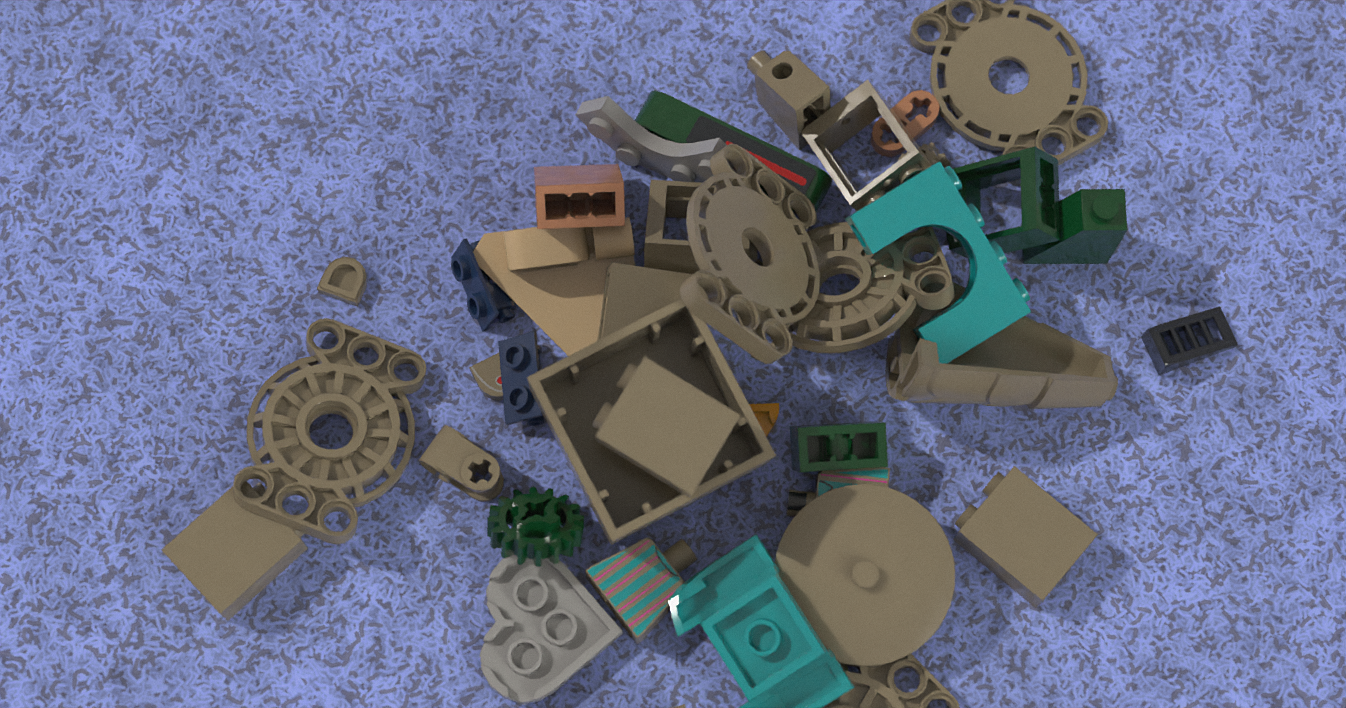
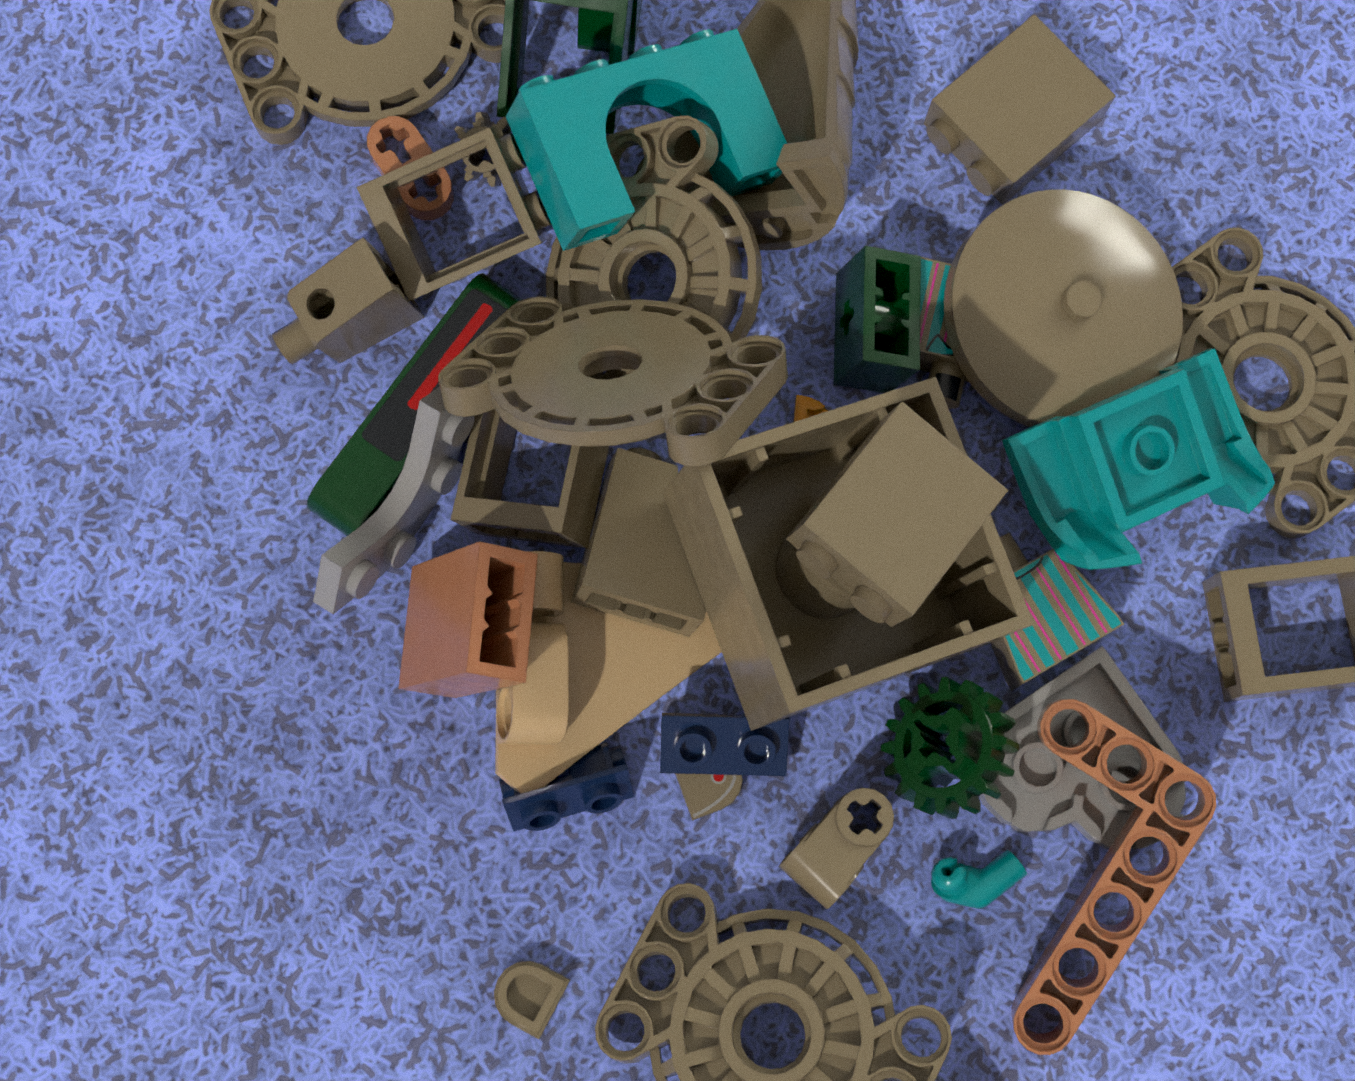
camera: 85 degrees left, 5 degrees up
(445, 561) = (976, 886): none -> teal arm
(461, 645) = (1114, 874): none -> nougat beam

